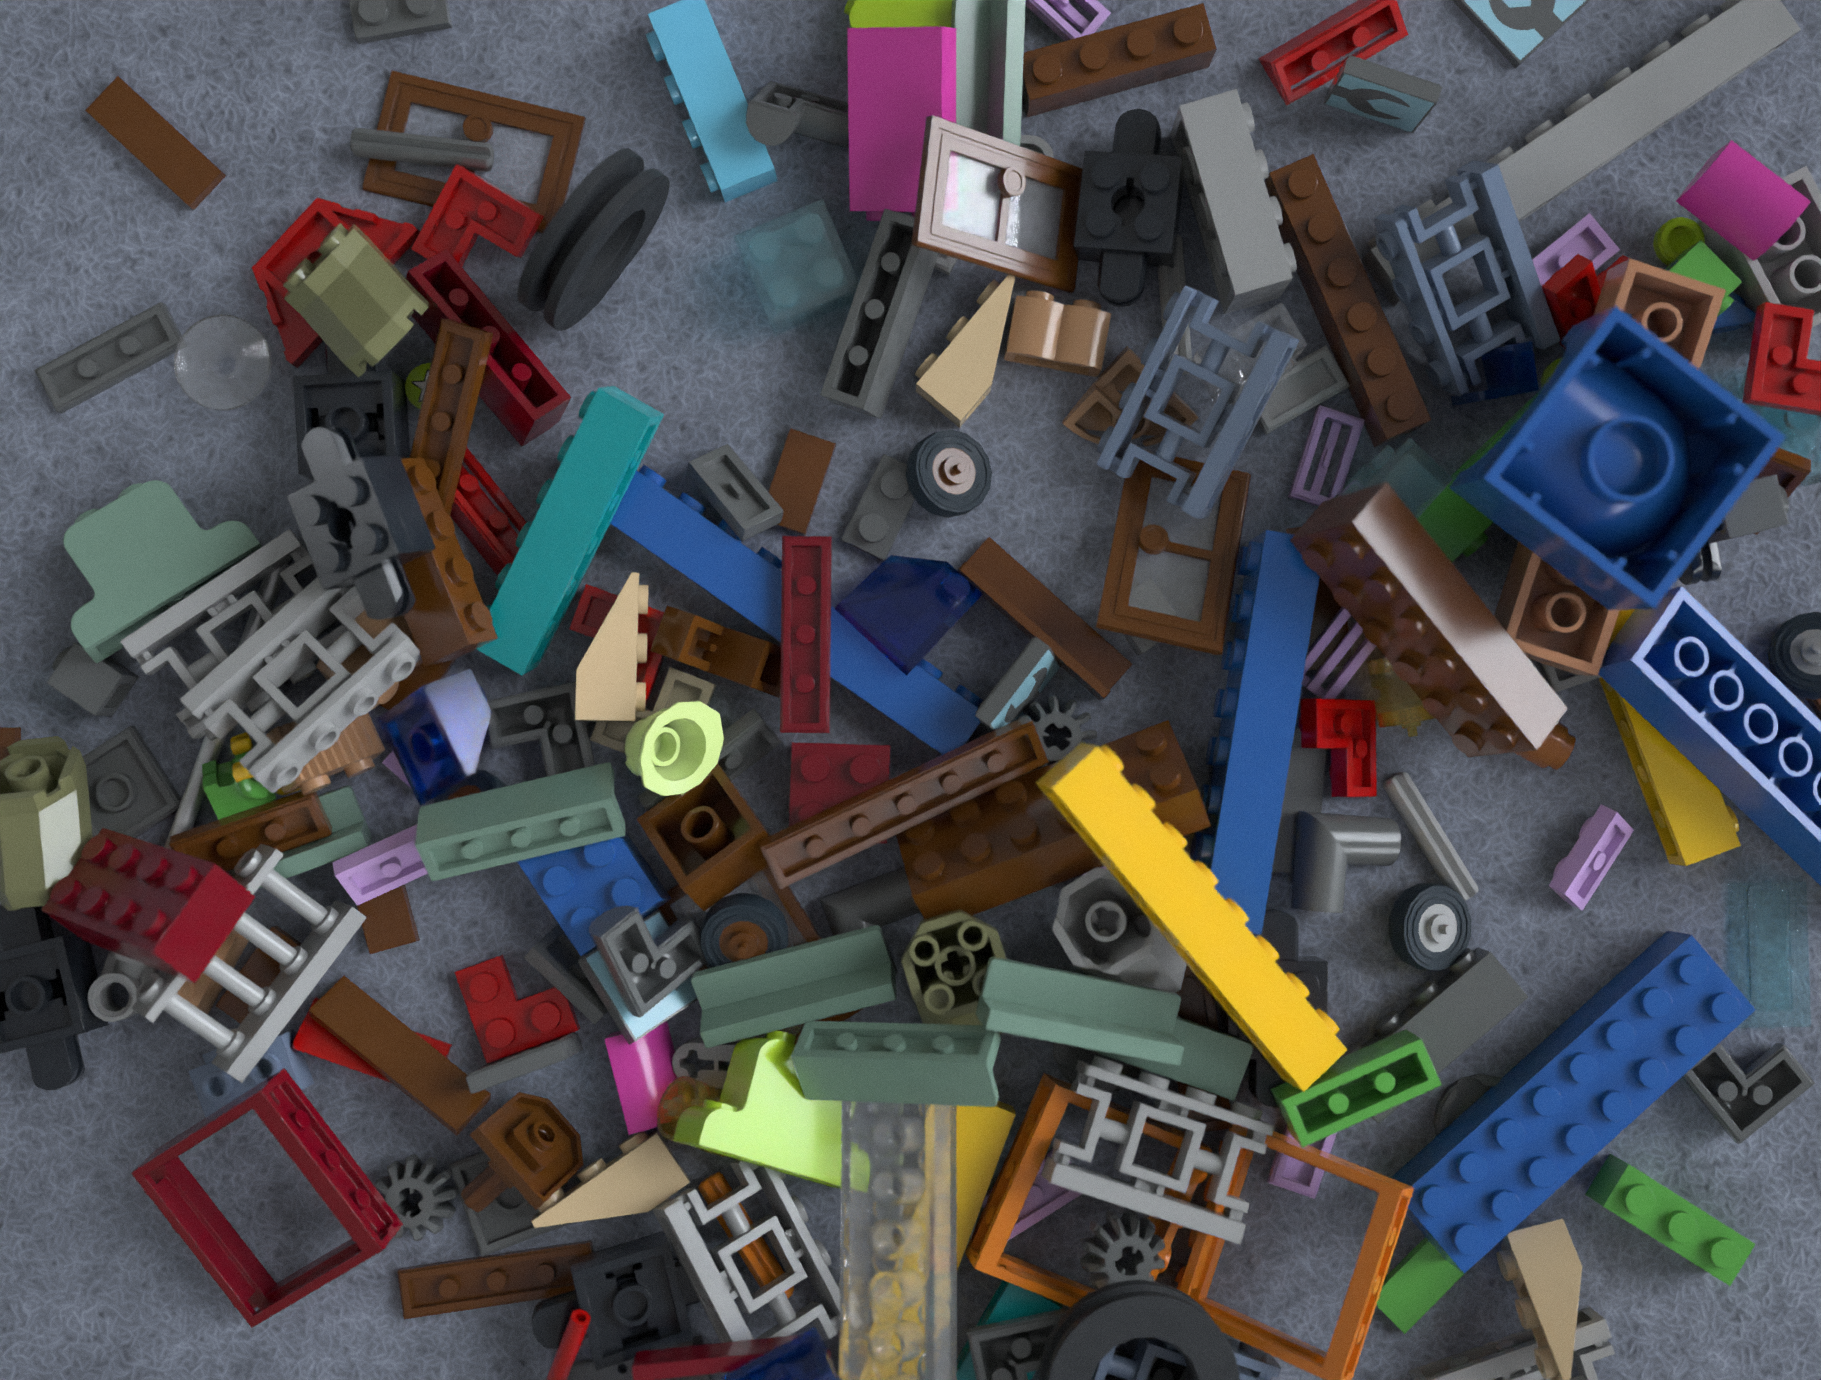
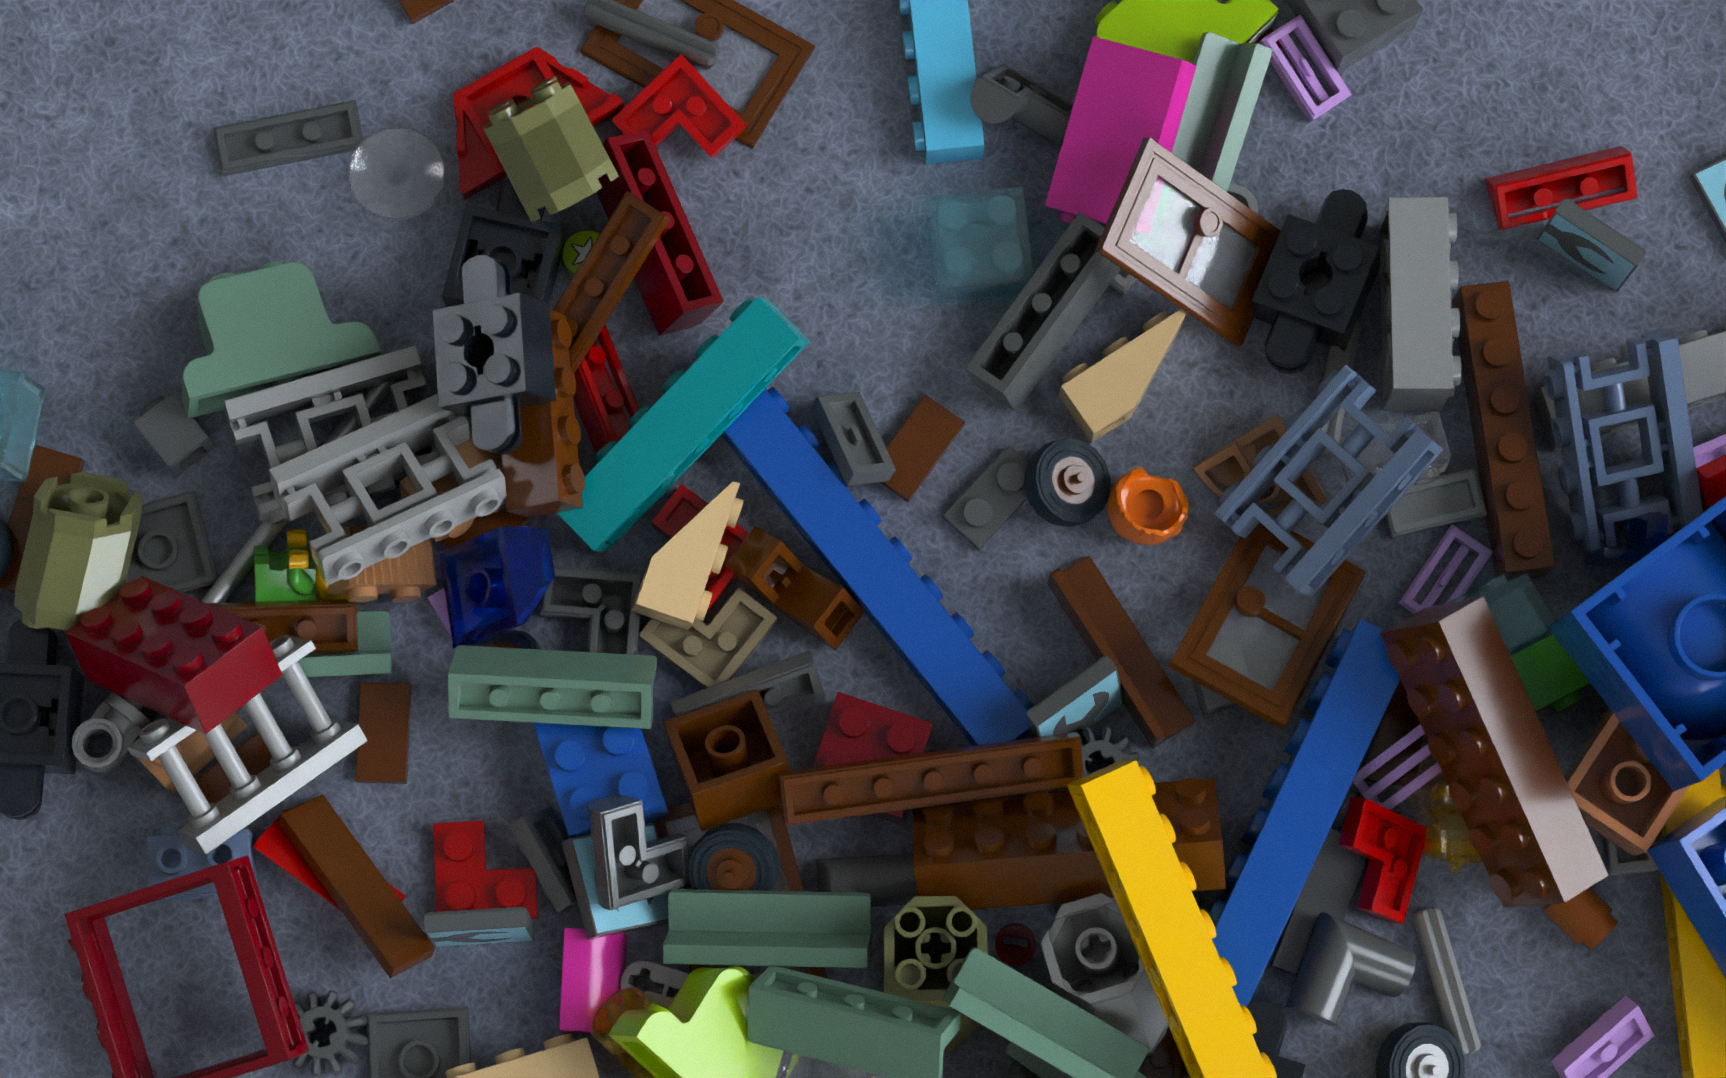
camera: 15 degrees right, 10 degrees down
(380, 866) = (402, 694): lavender plate -> none
(528, 1149) = (454, 1015): reddish brown piece -> none
(592, 239) = (793, 160): black tyre -> none
(675, 747) = (724, 659): yellowish green piece -> none
(806, 634) = (882, 593): dark red tile -> none
(908, 607) = (992, 598): clear blue slope -> none
(1026, 931) = (1012, 953): none -> dark red hinge
(1030, 475) = (1147, 507): none -> orange hair
(1057, 334) = (1212, 381): medium nougat brick -> none
(1117, 60) = (1343, 140): reddish brown brick -> none

